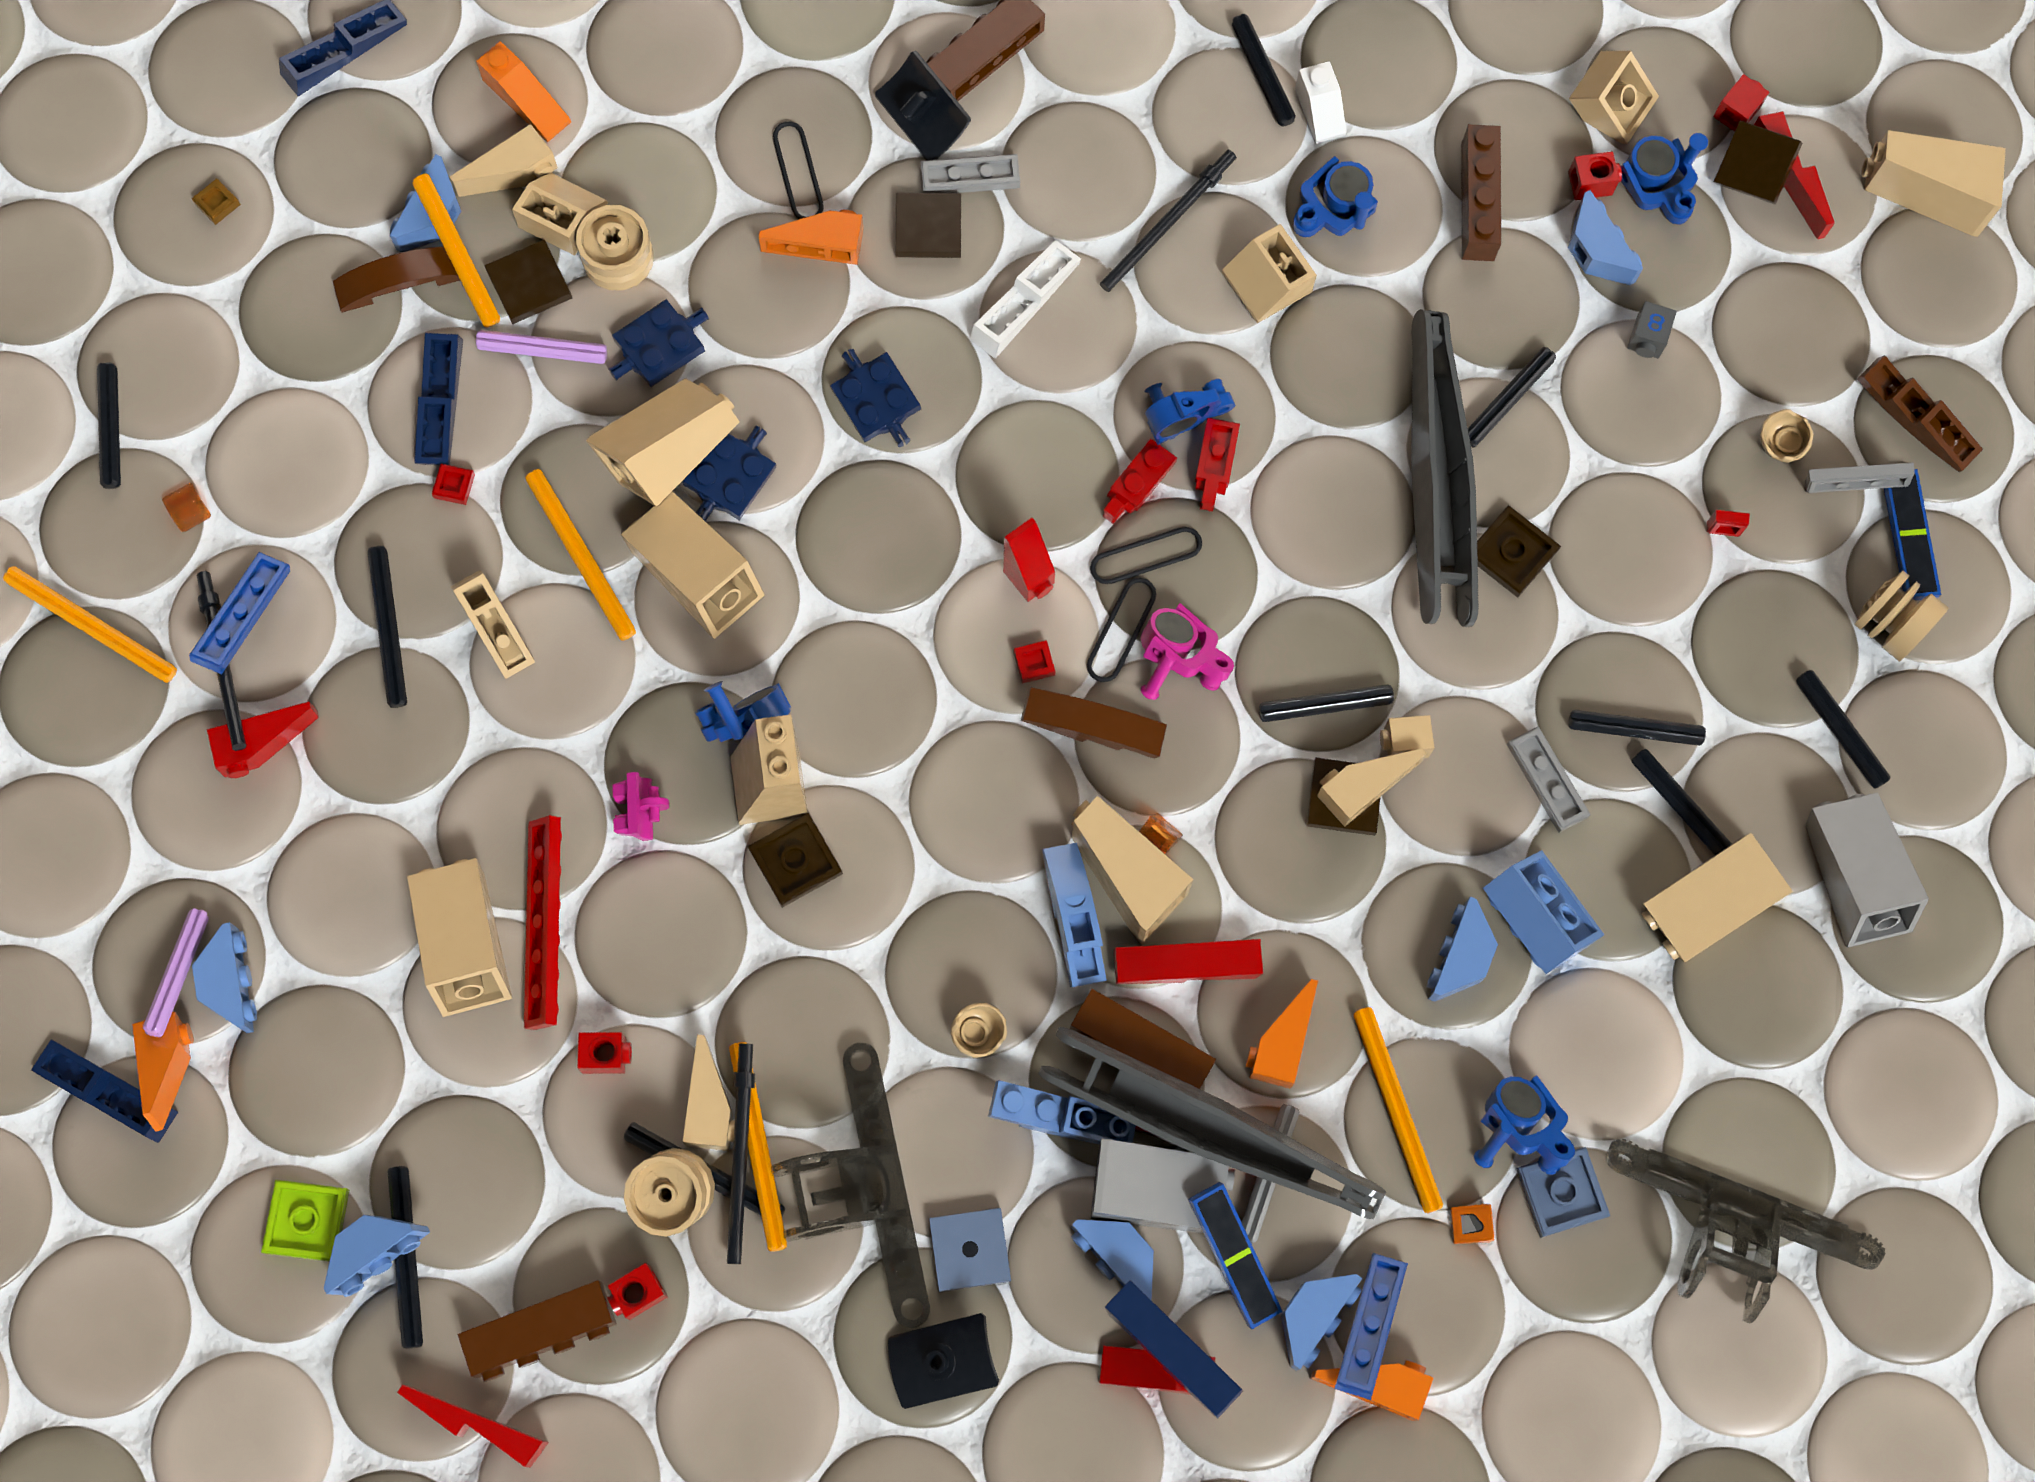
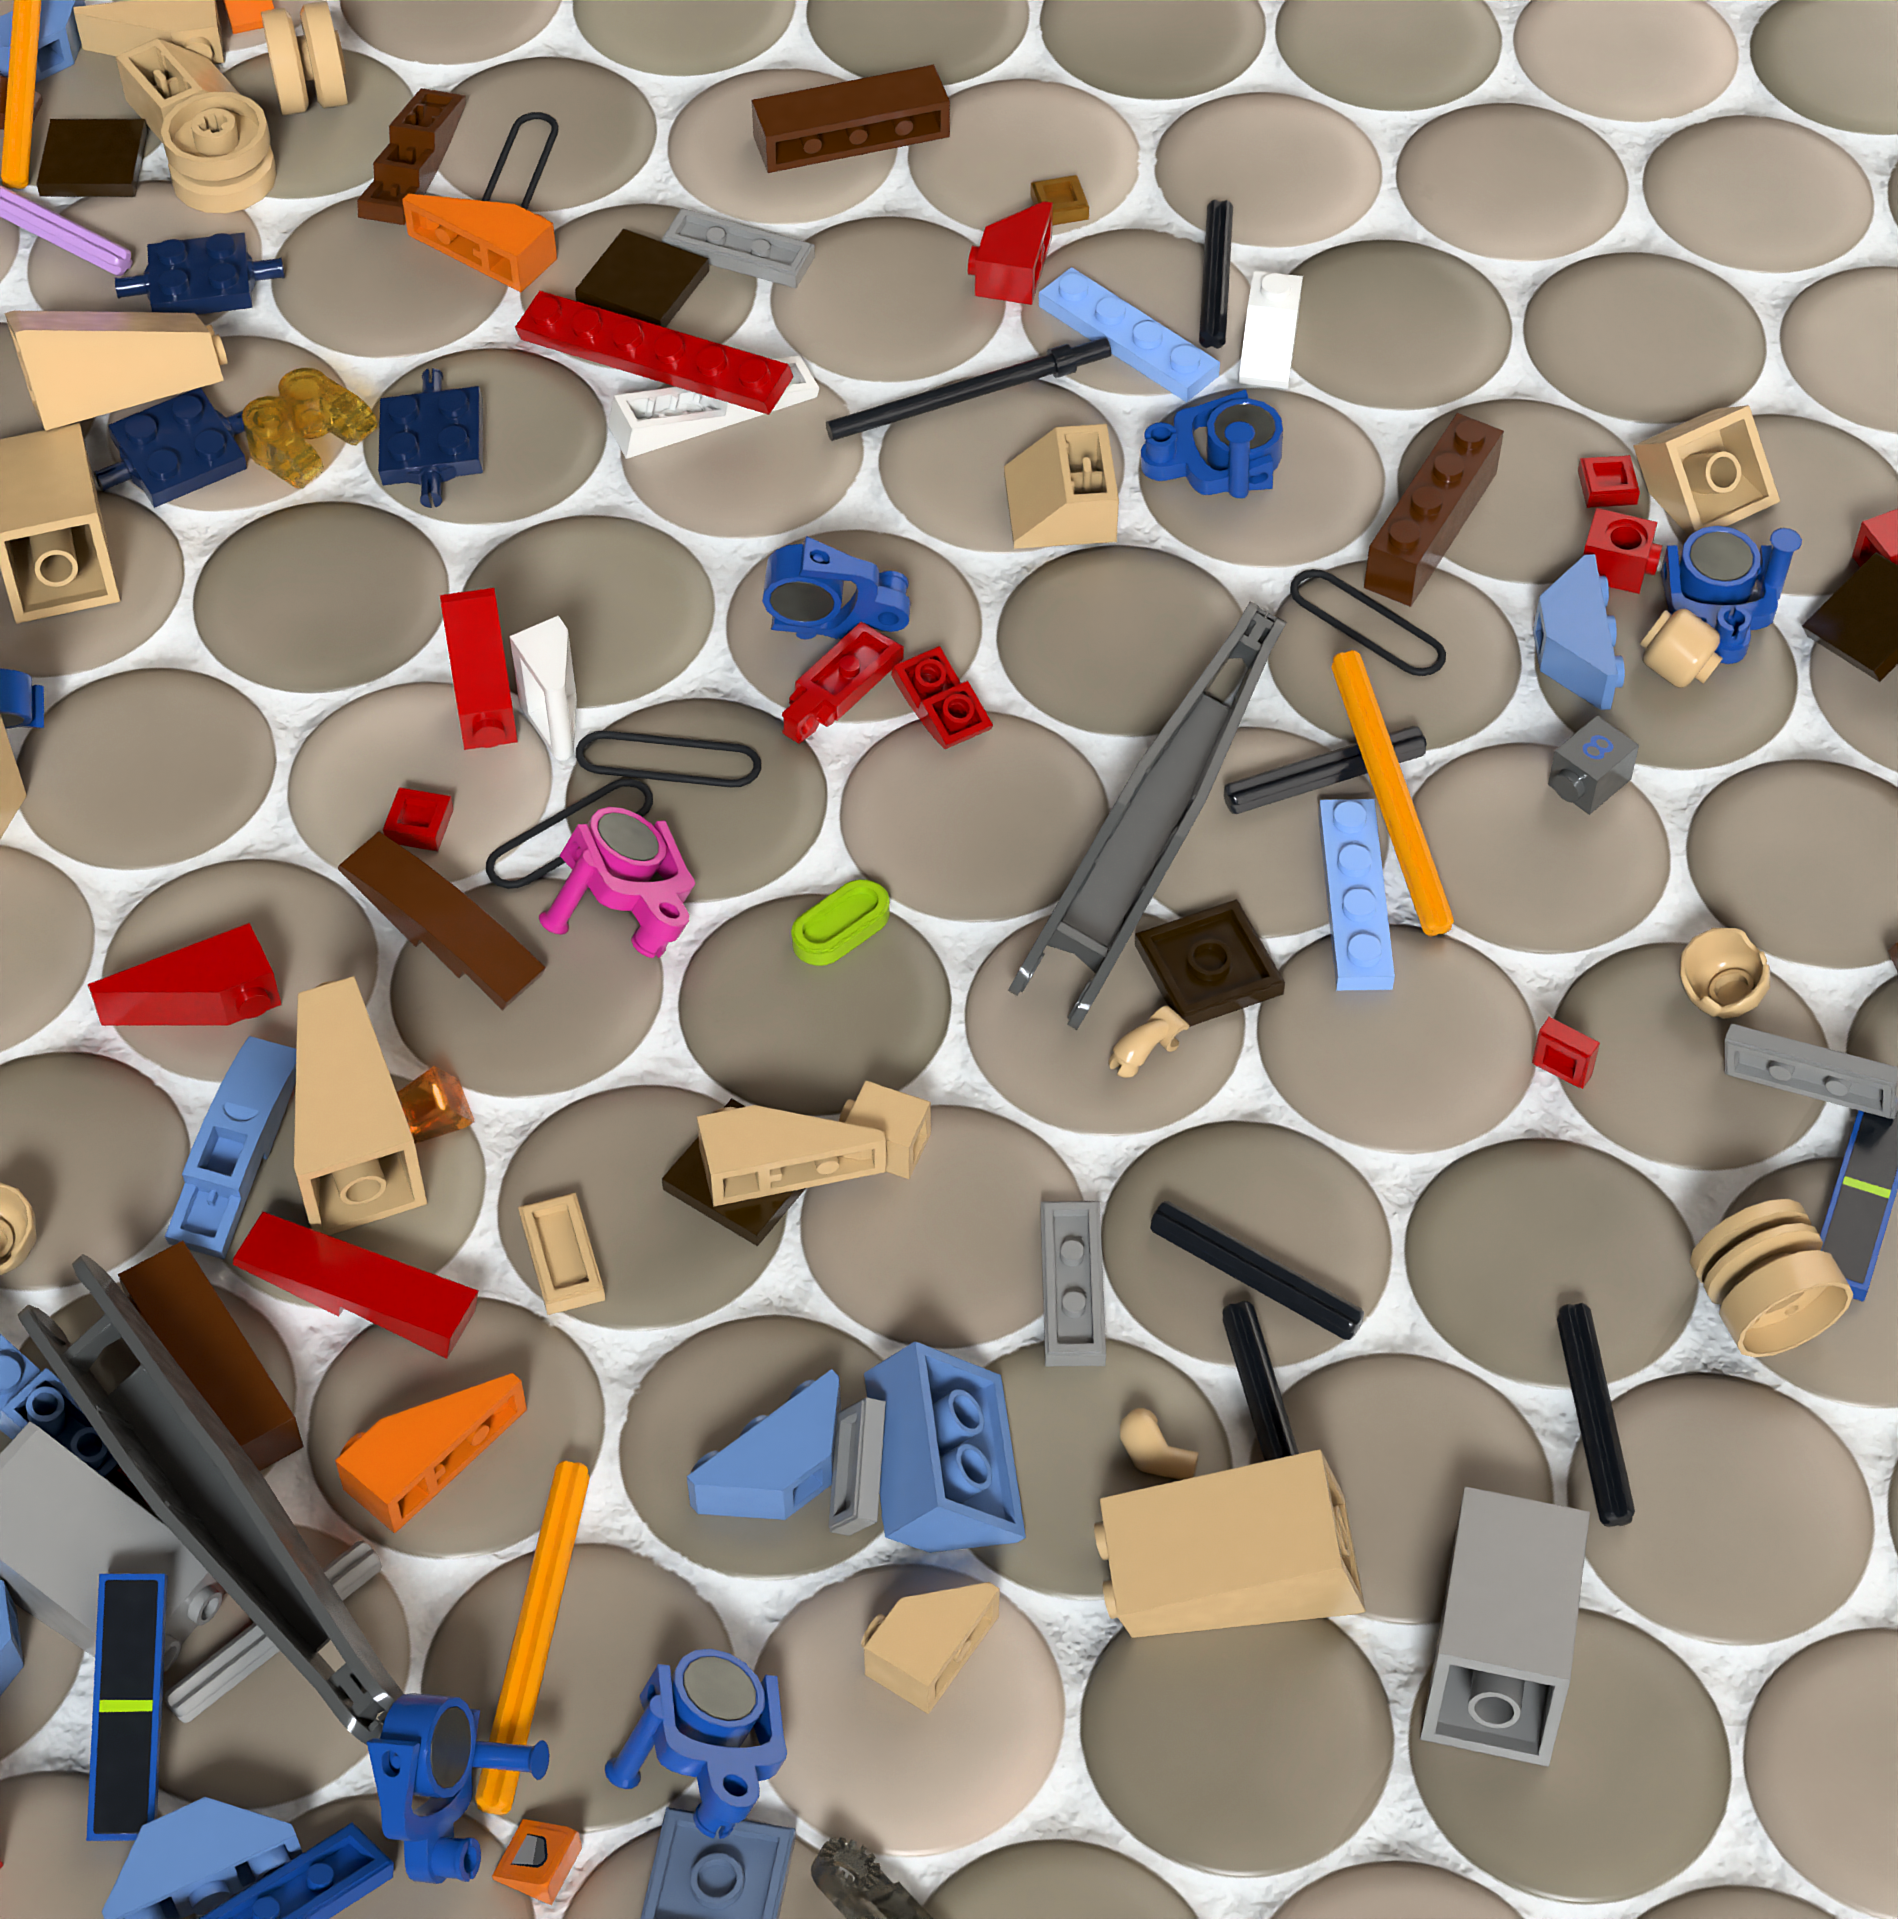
camera: 30 degrees right, 20 degrees down
(627, 154) = (305, 58): none -> tan wheel
(731, 193) = (414, 154): none -> reddish brown slope
(811, 407) = (305, 409): none -> clear yellow piece
(923, 107) = (724, 152): black shield -> none
(976, 281) = (655, 352): none -> red plate
(991, 825) = (193, 986): none -> red slope
(1068, 547) = (547, 683): none -> white tile
(1138, 480) = (716, 665): red hinge -> none
(1140, 53) = (1067, 198): none -> pearl gold tile
(1142, 112) = (1013, 255): none -> red slope
(1240, 137) = (1131, 334): none -> light blue plate
(1275, 447) = (939, 698): none -> red slope
(1279, 890) = (561, 1253): none -> tan tile
(1304, 618) = (840, 922): none -> lime tile
(1326, 703) = (798, 1039): black axle -> none
(1410, 1217) = (430, 1753): none -> blue piece
(1473, 295) = (1358, 637): none -> black piece
(1508, 623) = (1137, 1044): none -> tan arm
(1513, 945) = (857, 1467): none -> light grey tile
(1557, 398) = (1392, 794): none -> light orange axle
(1559, 124) = (1608, 481): none -> red tile
(1566, 470) = (1356, 895): none -> light blue plate
(1596, 1019) = (928, 1640): none -> tan slope
(1640, 857) = (1149, 1449): none -> tan arm
(1660, 228) = (1681, 648): none -> tan head

